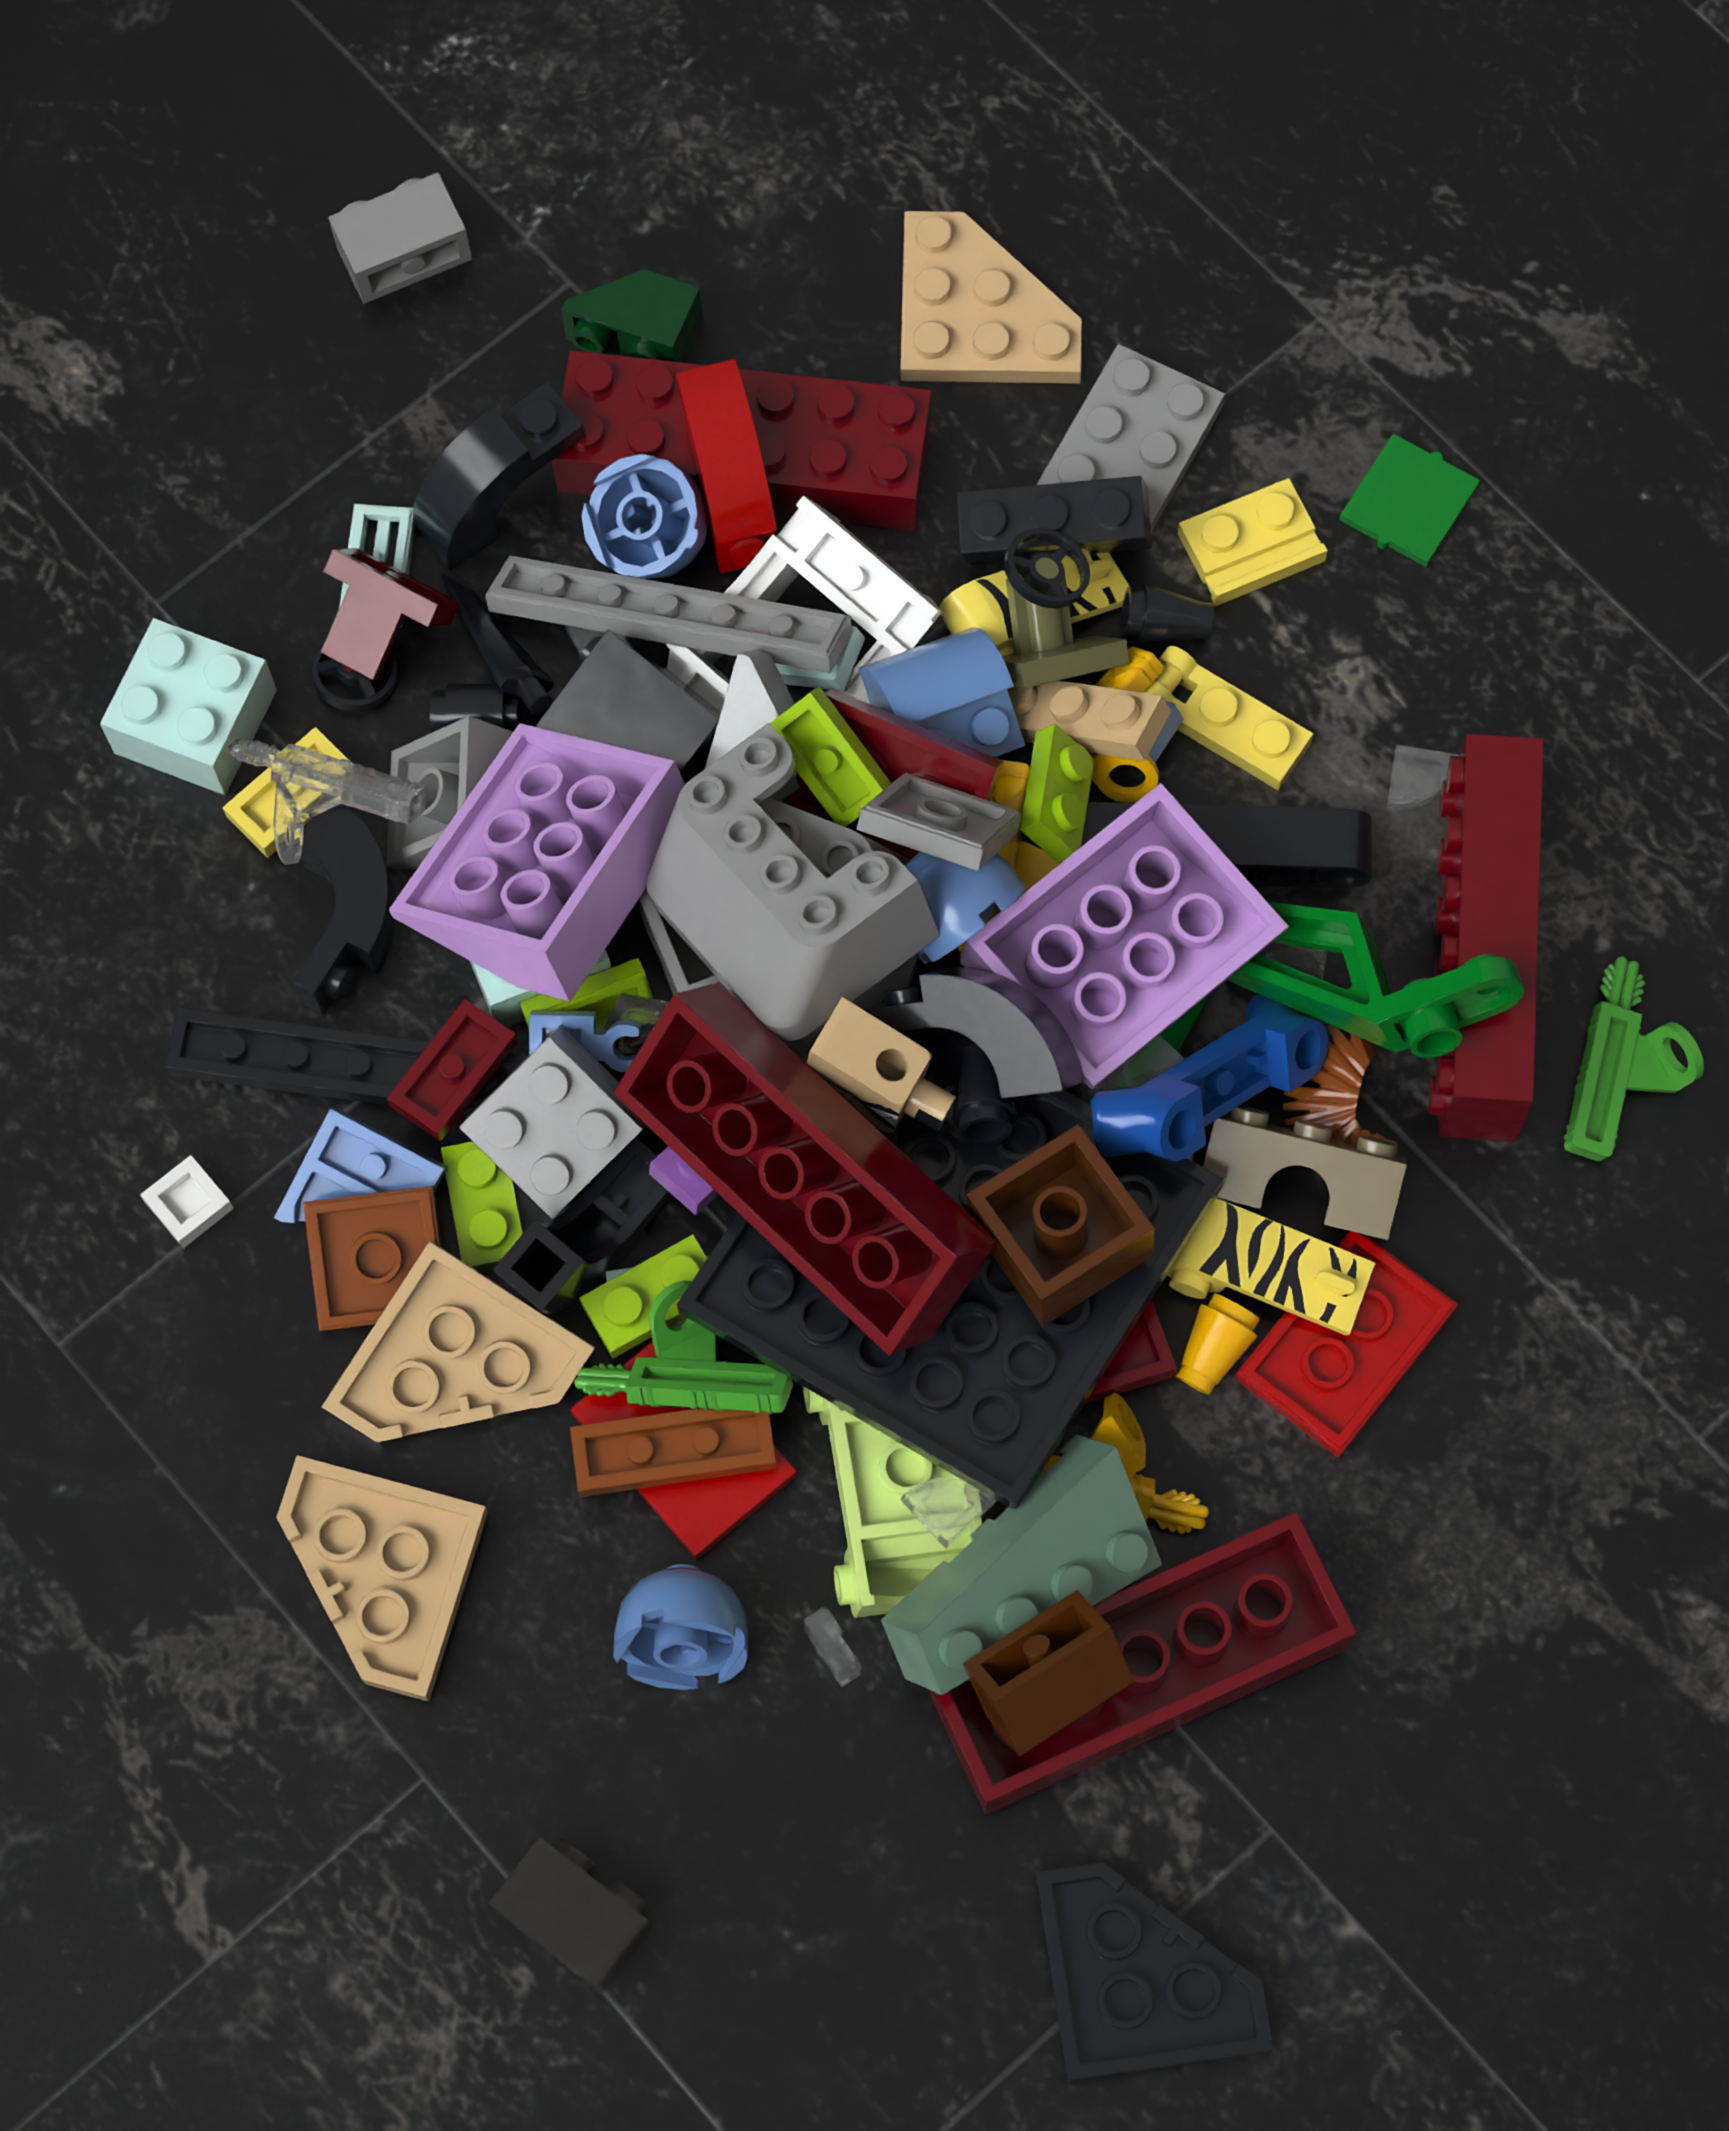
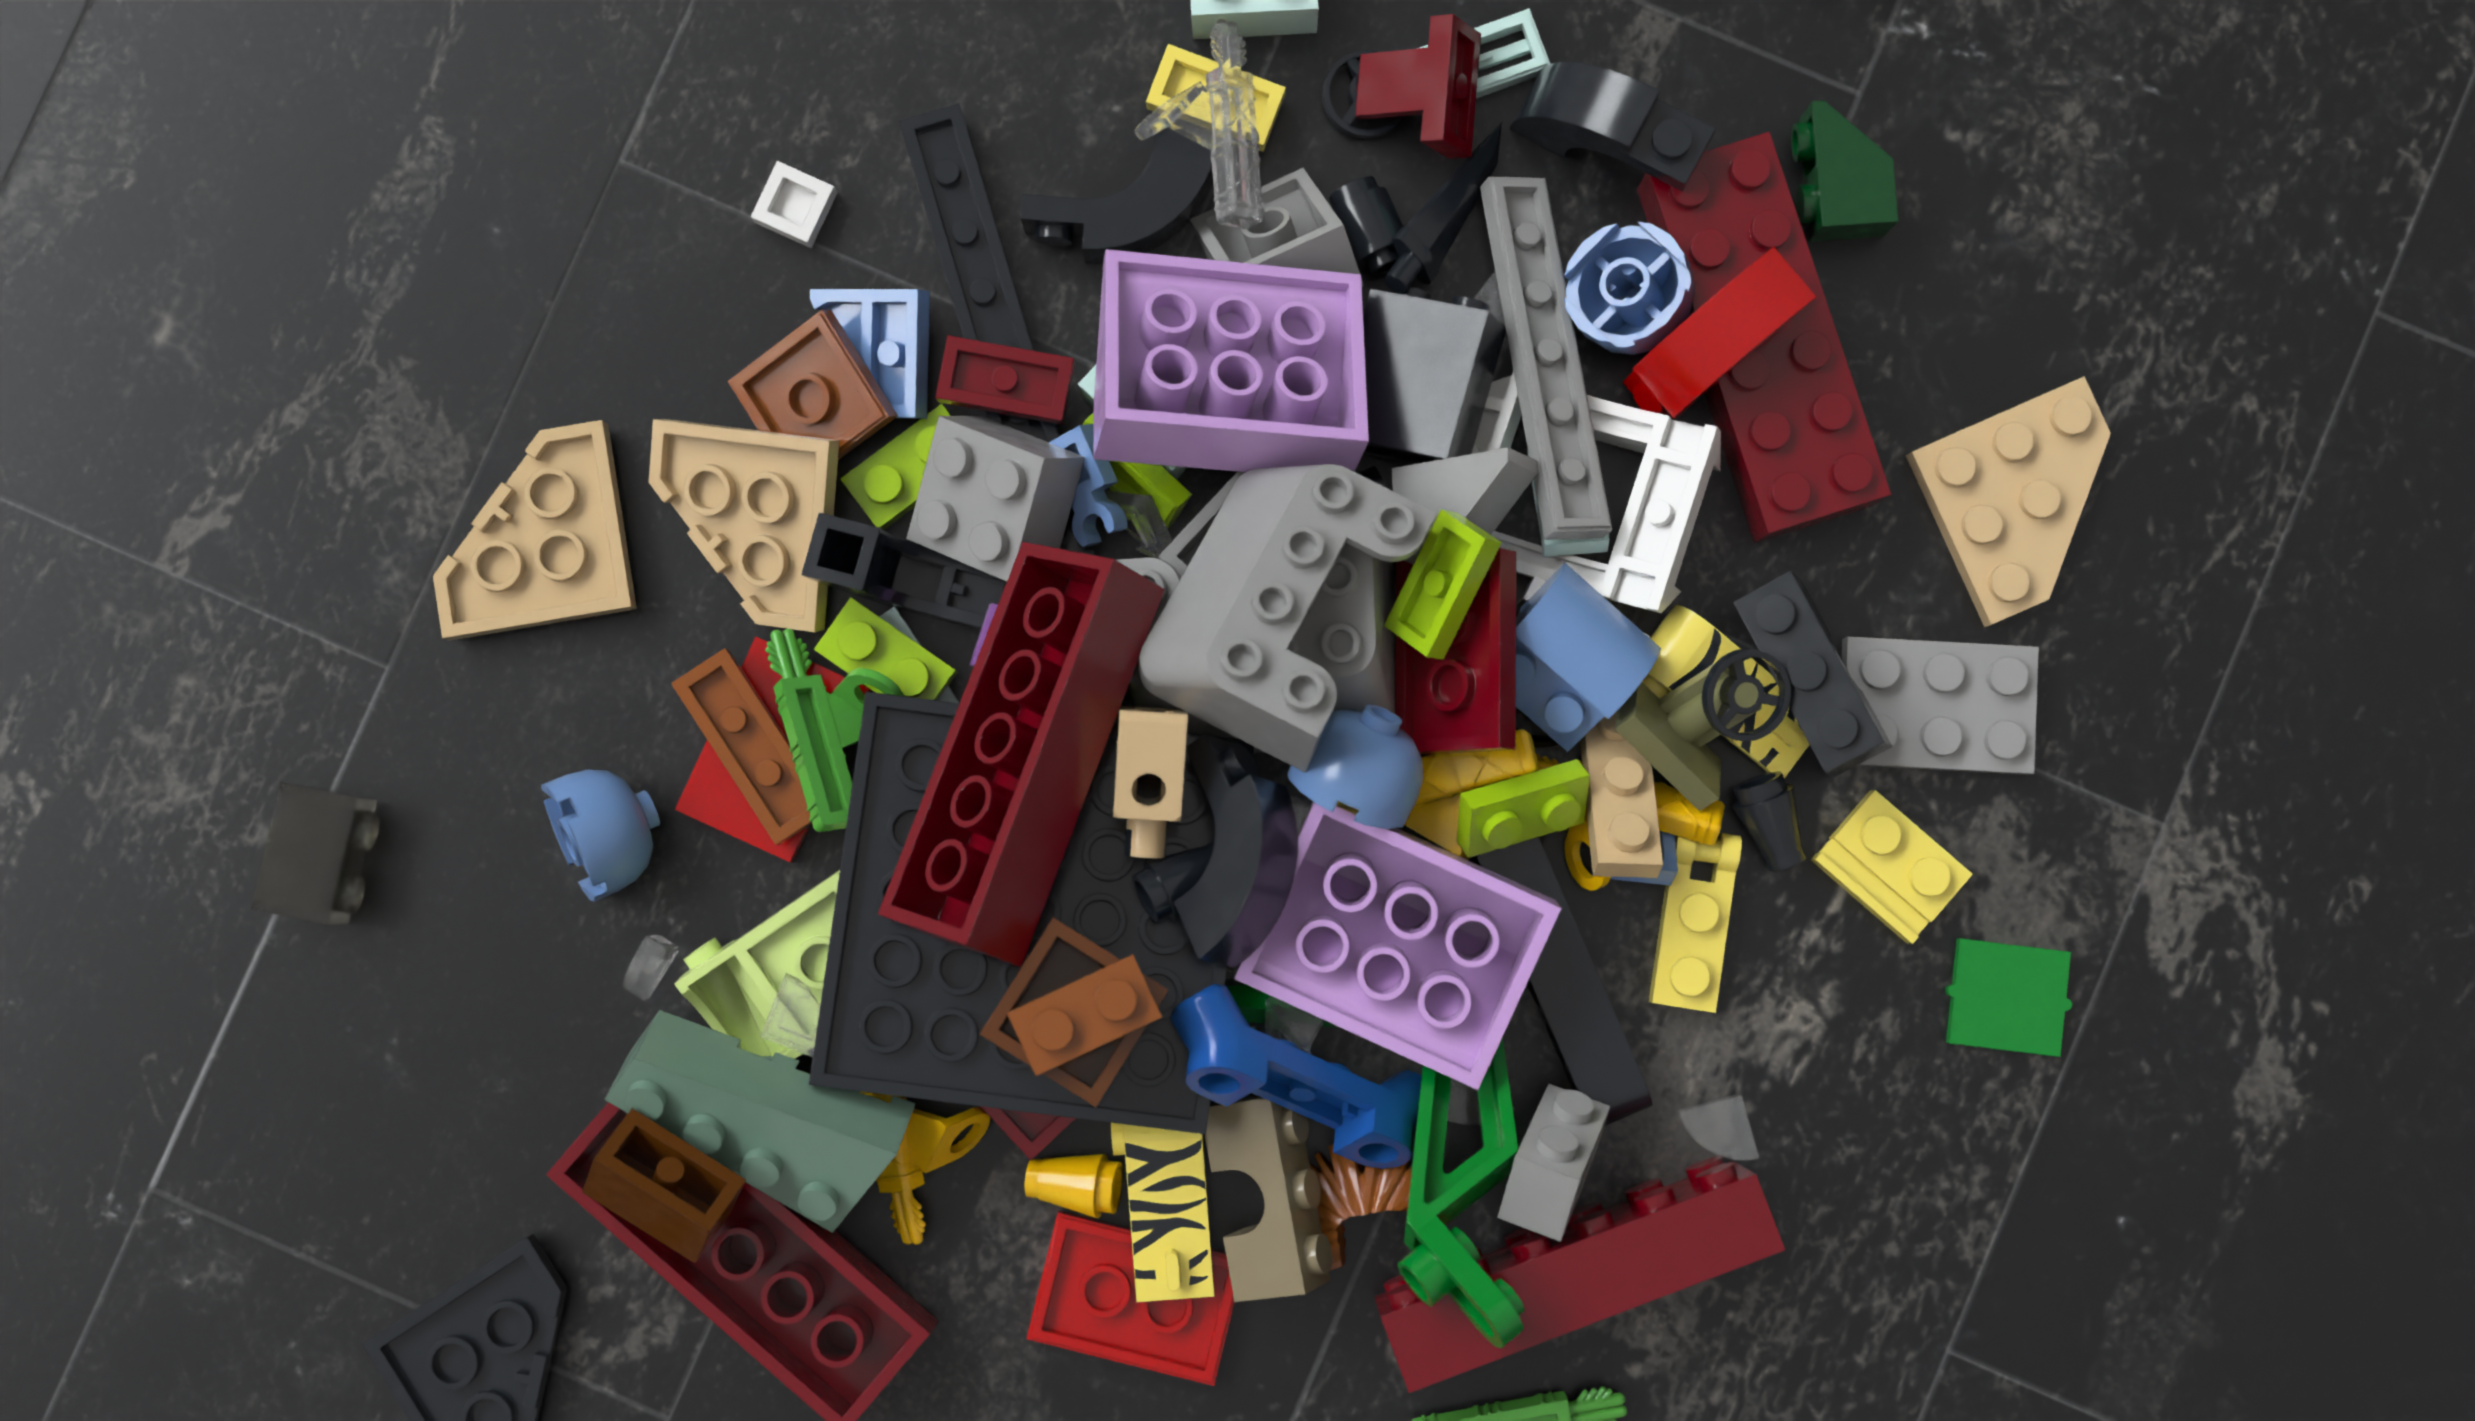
camera: 65 degrees right, 15 degrees up
(939, 821) = (1414, 721): light grey plate -> none
(1067, 1199) = (1084, 1015): none -> dark orange plate
(1387, 897) = (1553, 1162): none -> light grey brick

